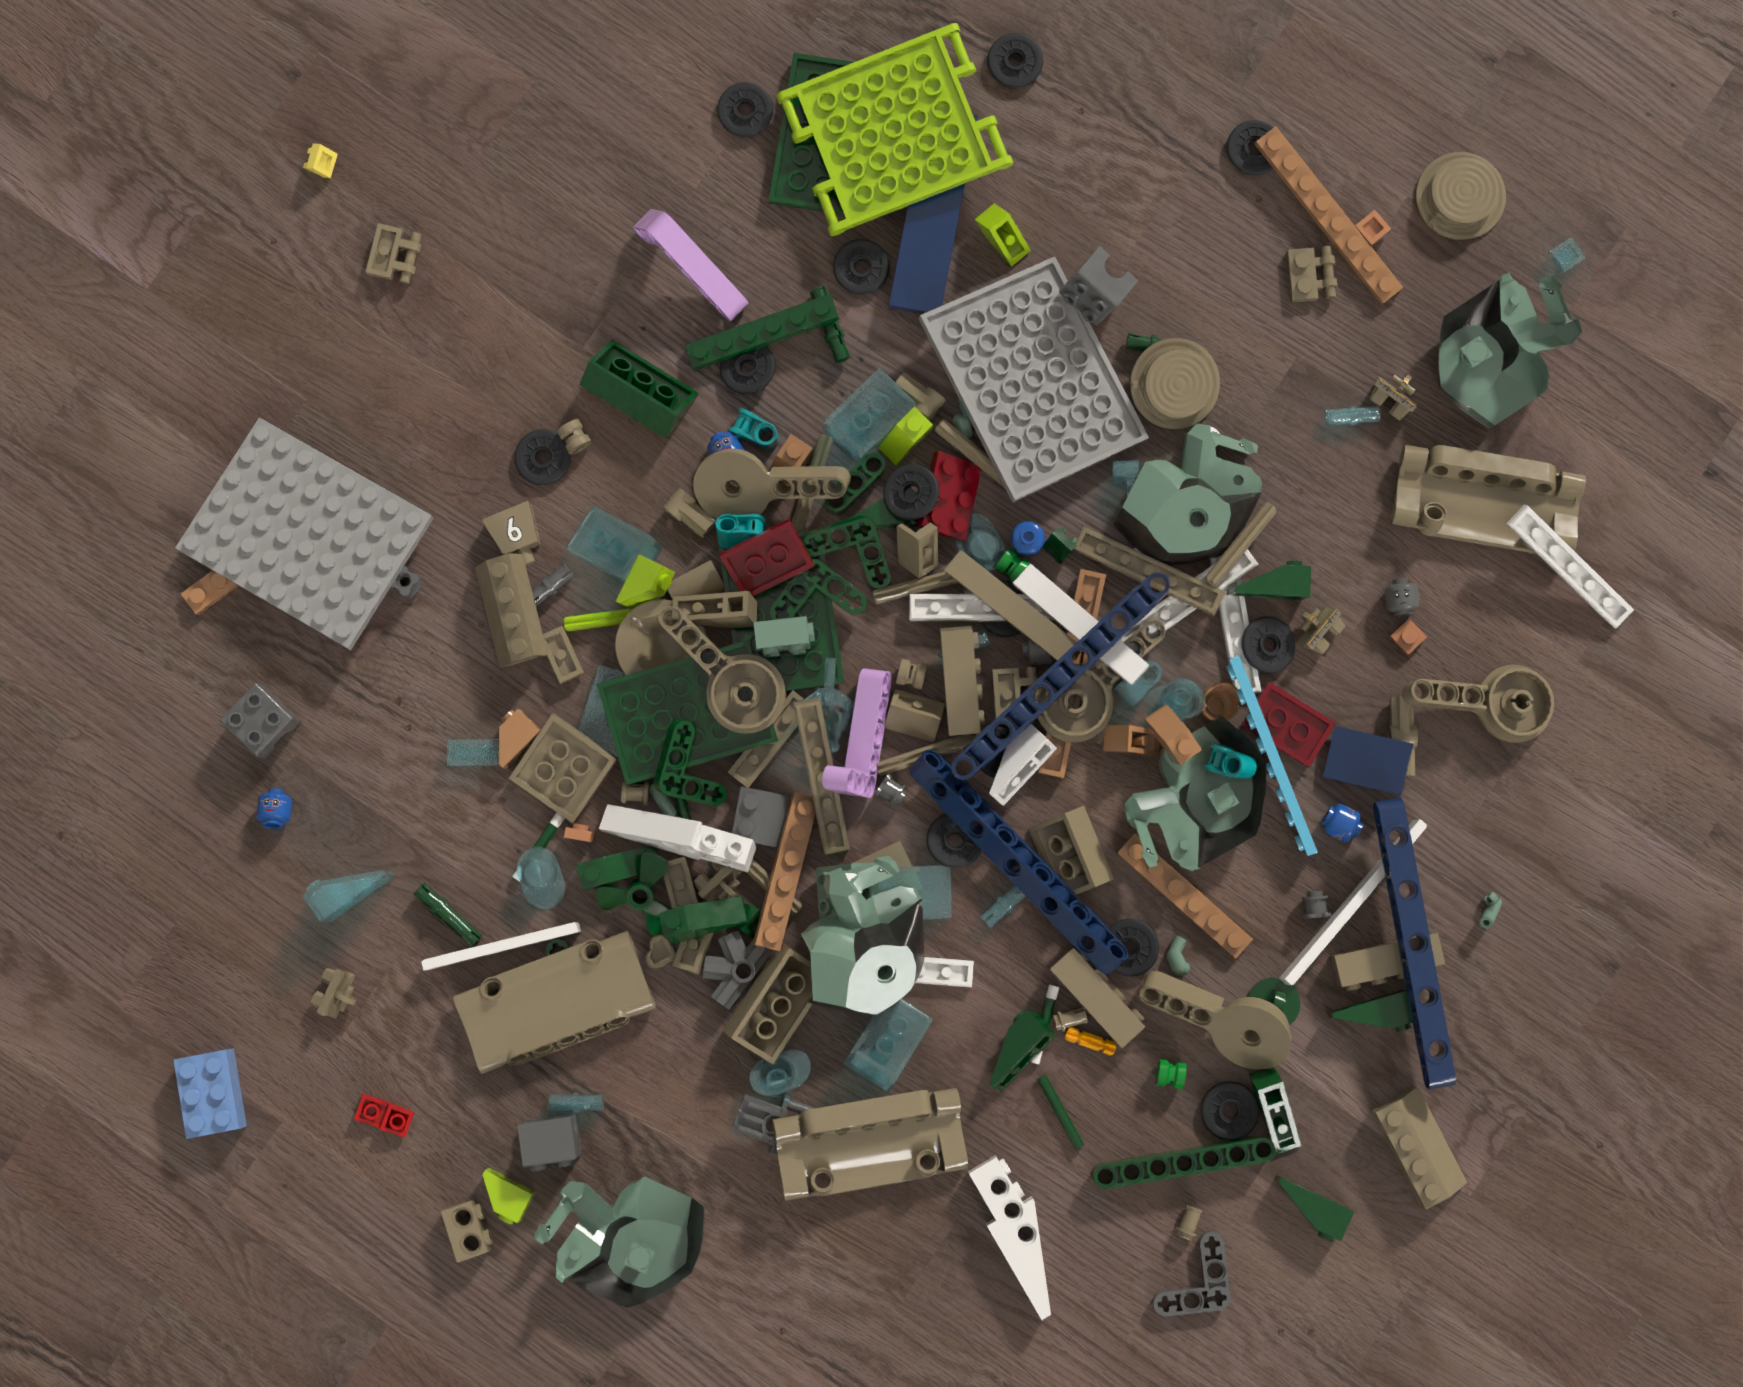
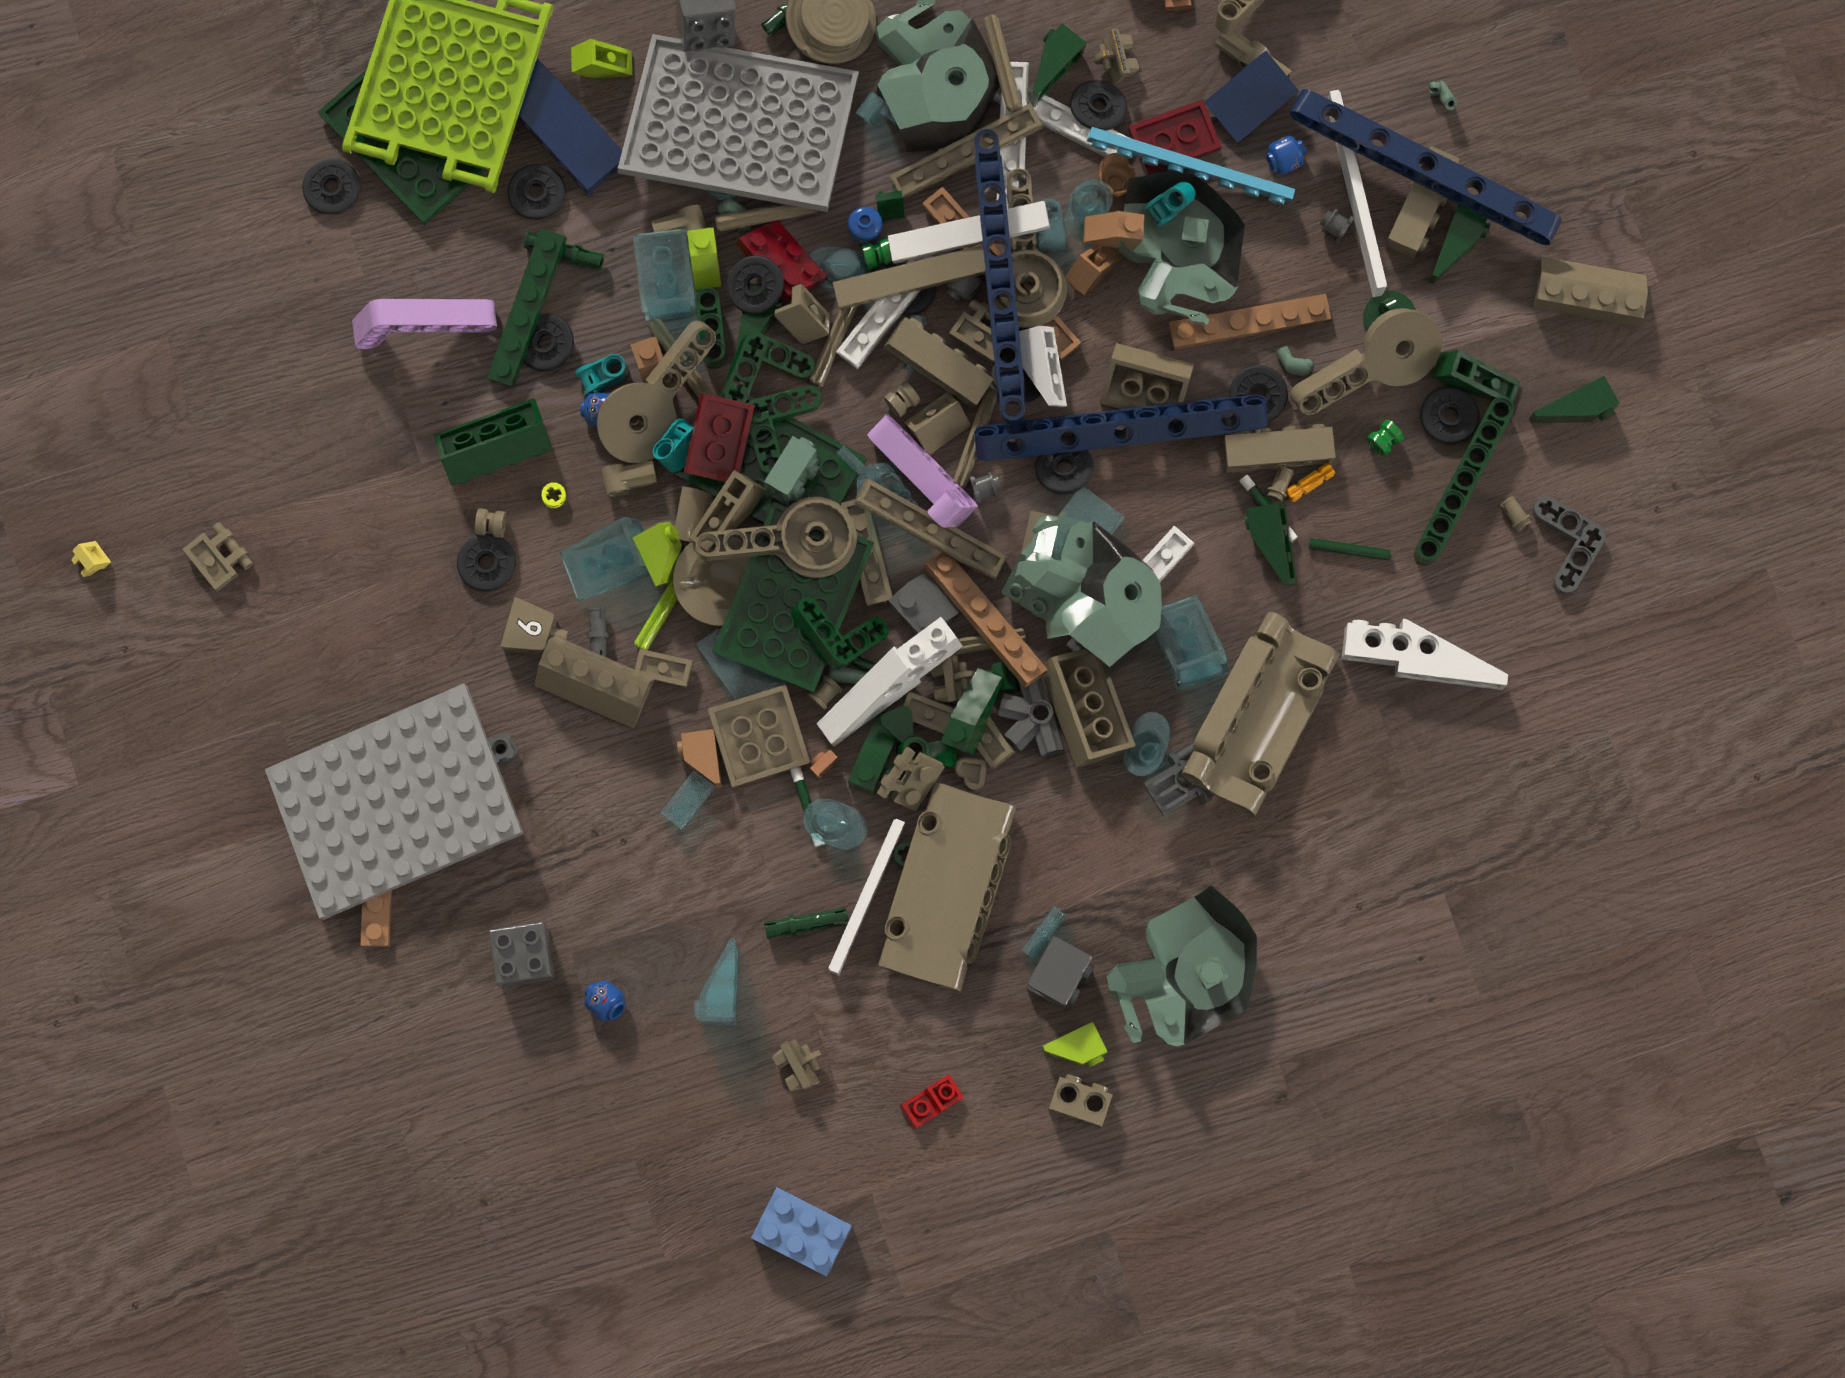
camera: 55 degrees left, 5 degrees down
(617, 916) = (916, 782): none -> dark tan plate
(626, 470) = (551, 503): none -> neon yellow bush
(1002, 906) = (1147, 468): clear light blue pin -> none

